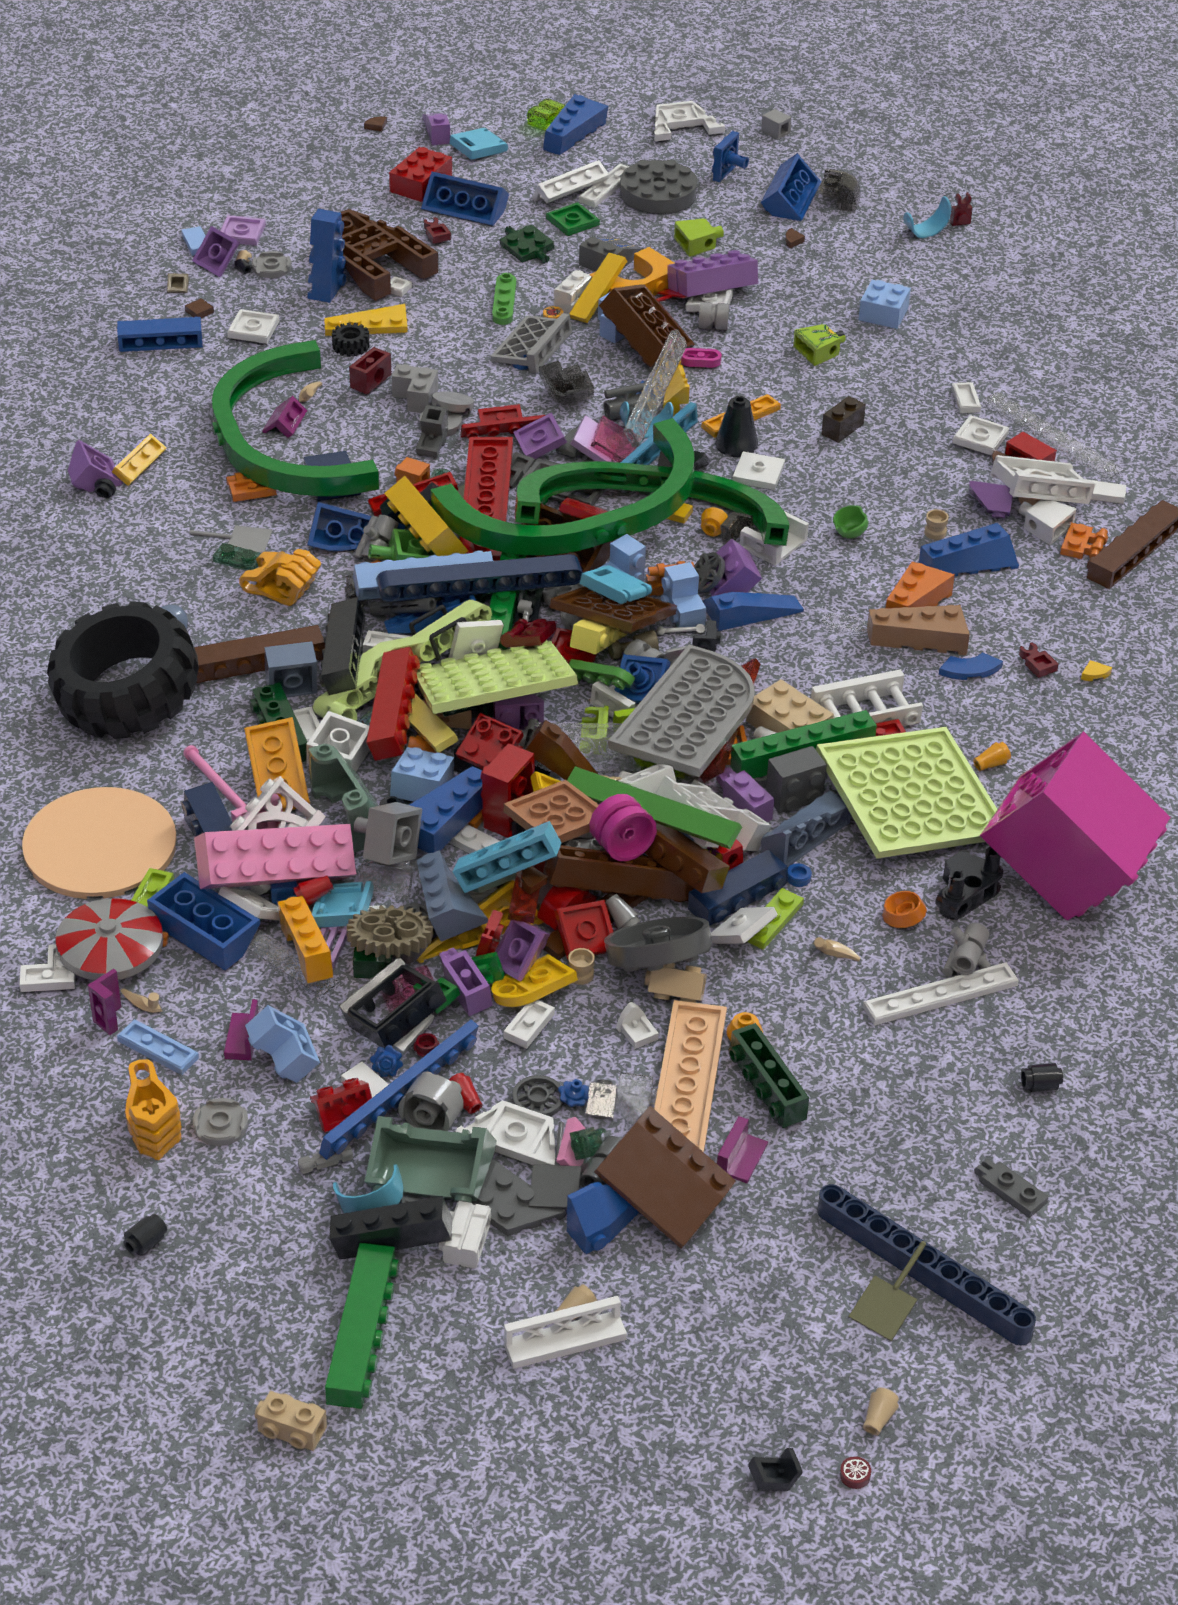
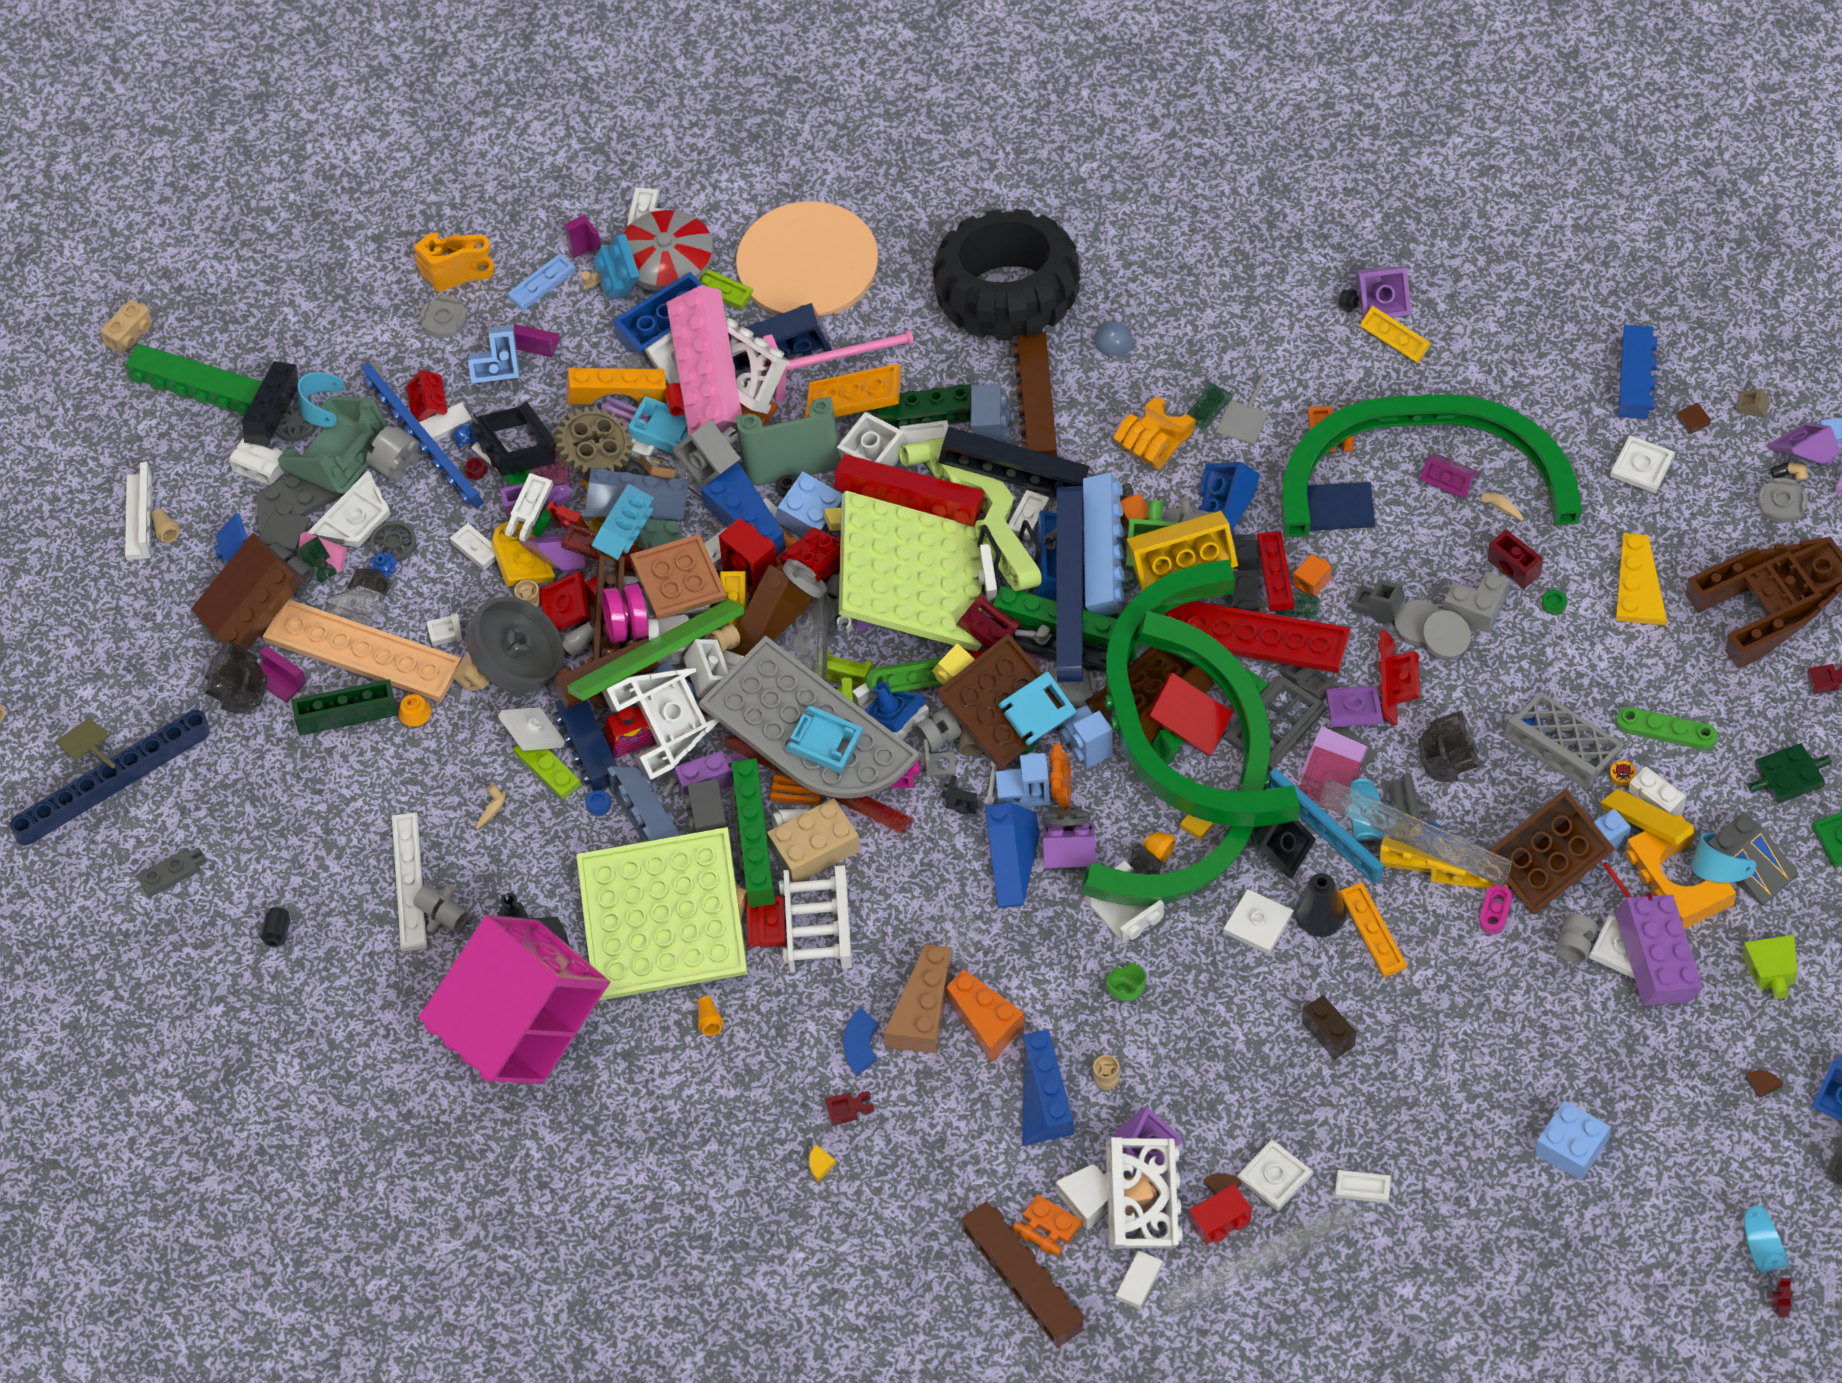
camera: 110 degrees right, 15 degrees up
(145, 1234) = (336, 252): black brick -> none
(146, 963) = (616, 268): none -> dark azure plate
(326, 255) = (1732, 528): blue wedge -> none
(350, 339) = (1601, 543): black tyre -> none
(400, 286) = (1713, 622): white tile -> none
(400, 358) = (1554, 602): none -> green tile
(403, 885) = (657, 466): none -> medium nougat tile
(471, 1100) = (410, 486): red cone -> none
(490, 957) = (529, 505): none -> white hinge
(540, 717) = (804, 578): none -> light grey tile
(632, 252) = (1717, 866): none -> medium azure piece
(705, 695) = (820, 738): none -> medium azure container
(768, 1173) = (236, 679): none -> clear smoke brick
(818, 343) = (1499, 1044): lime torso -> none
(903, 909) = (520, 876): orange hat -> none

